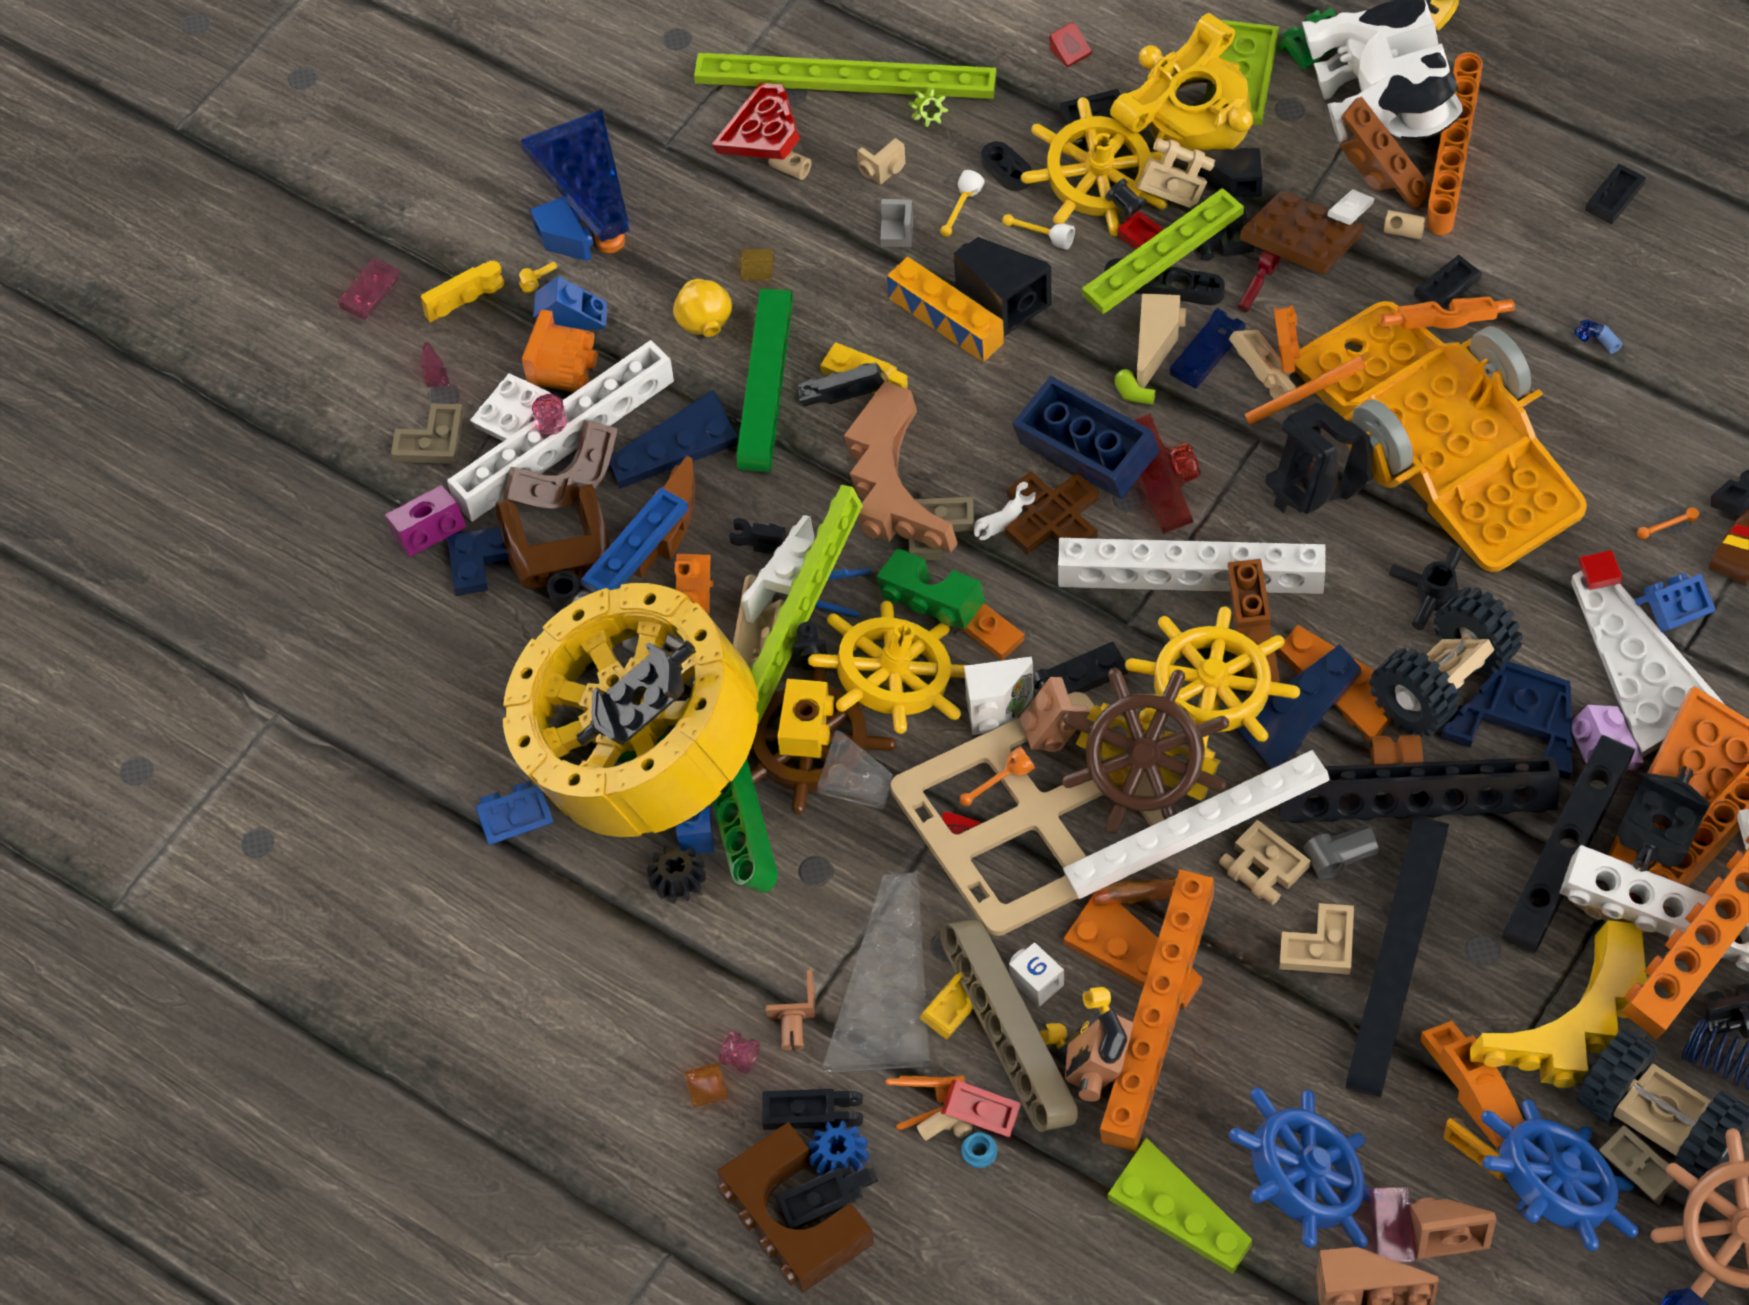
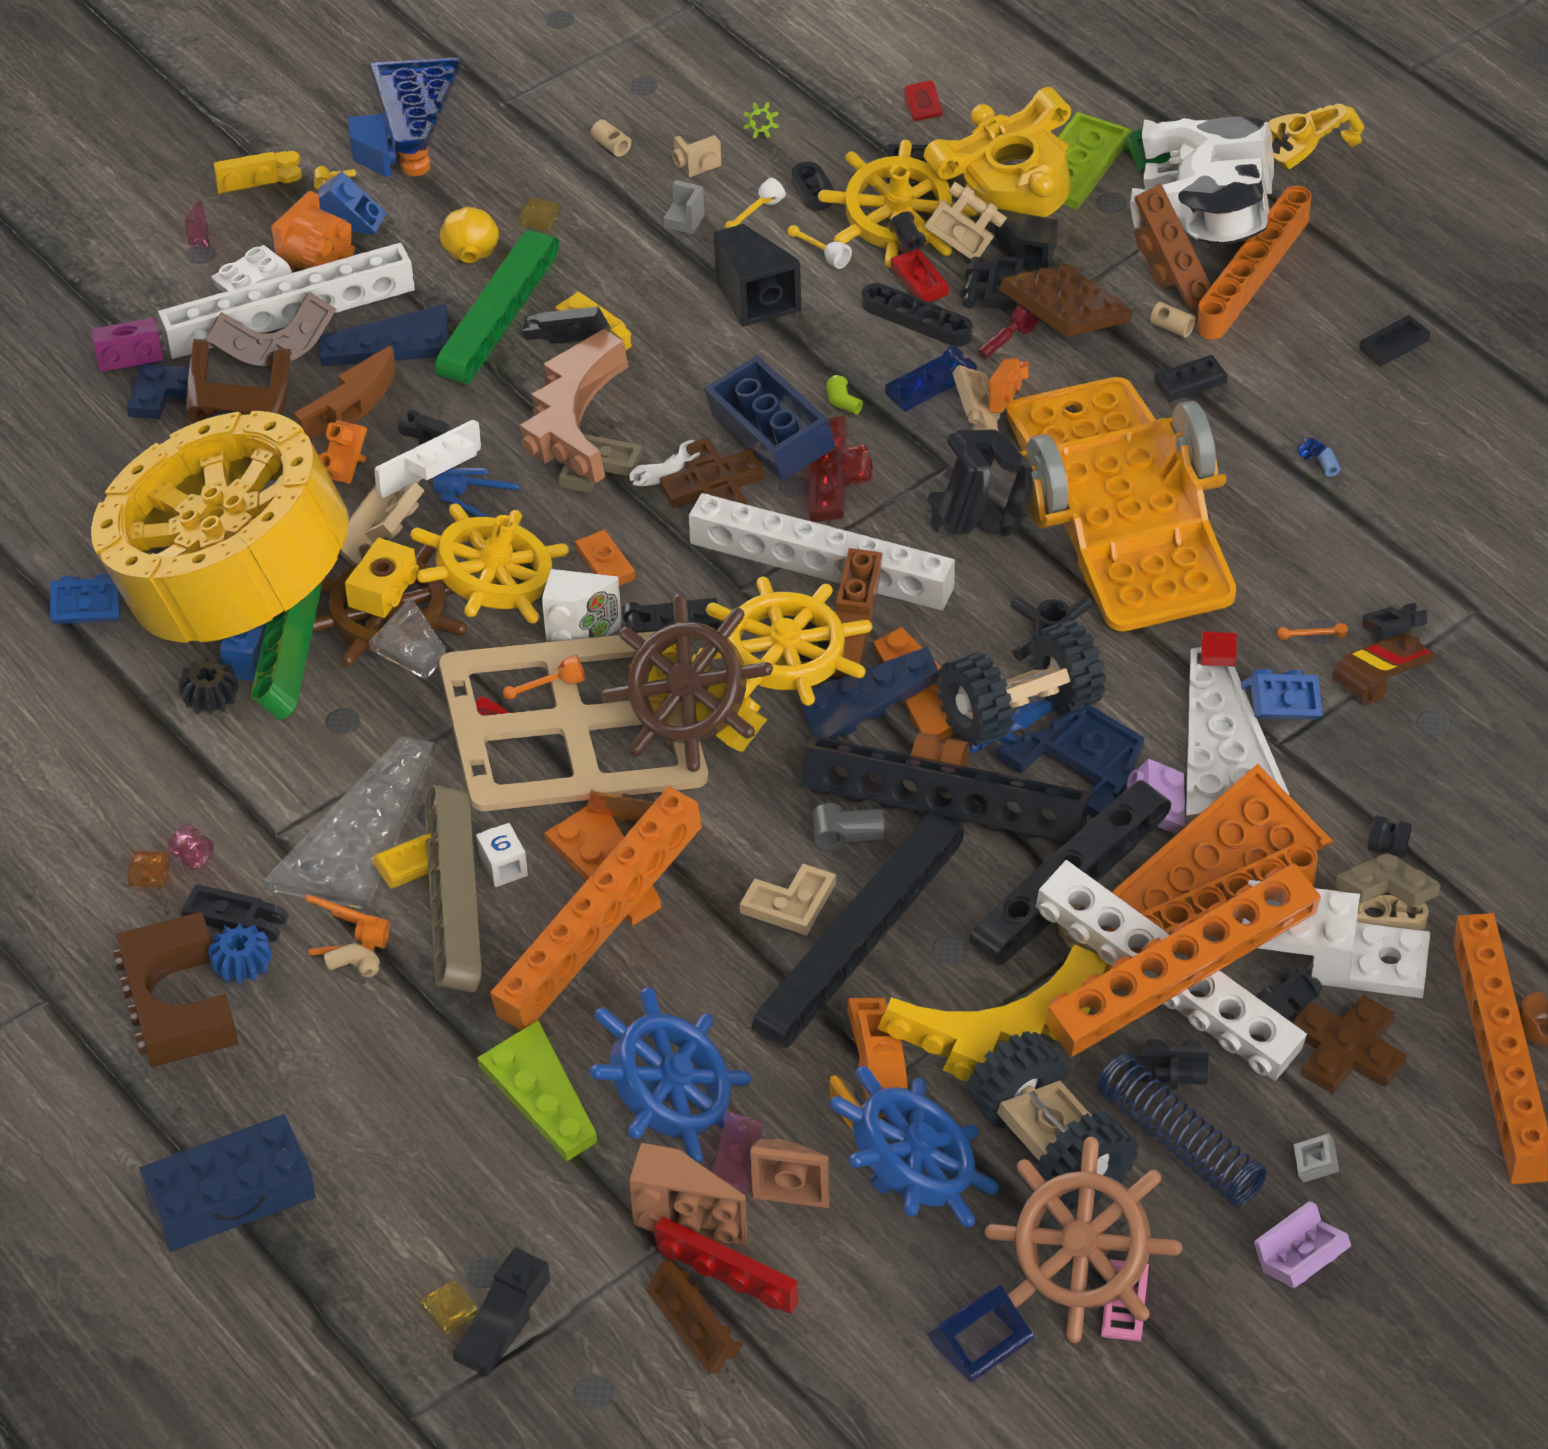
camera: 15 degrees right, 10 degrees down
(369, 288) = (175, 151): clear pink plate -> none
(436, 443) = (170, 287): dark tan plate -> none
(546, 421) = (274, 277): clear pink wheel -> none
(620, 711) = (237, 491): black plate -> none
(636, 542) = (316, 393): blue plate -> none
(761, 126) = (595, 101): red plate -> none
(792, 1015) = (256, 828): nougat bracket -> none
(804, 594) = (431, 480): lime plate -> none
(807, 645) = (417, 517): black hinge -> none
(824, 1195) = (209, 981): black hinge -> none
(845, 75) = (698, 79): lime plate -> none
(945, 309) = (694, 287): light orange brick -> none
(950, 601) = (547, 502): green arch -> none
(975, 1141) = (374, 981): dark azure plate -> none
(980, 1108) = (389, 950): plate -> none
(1044, 717) = (608, 649): nougat bracket -> none
(1095, 1049) = (523, 924): torso -> none
(1158, 332) = (885, 354): tan slope -> none
(1162, 251) = (921, 283): lime plate -> none
(1196, 824) = (708, 758): white plate -> none
(1269, 853) = (778, 812): tan plate -> none
(1305, 390) = (1020, 426): orange bar -> none
(1350, 207) = (1126, 291): white piece -> none
(1460, 313) = (1161, 398): orange piece -> none
(1639, 1164) = (1000, 1159): dark tan hinge -> none
(1667, 803) = (1180, 855): black plate -> none

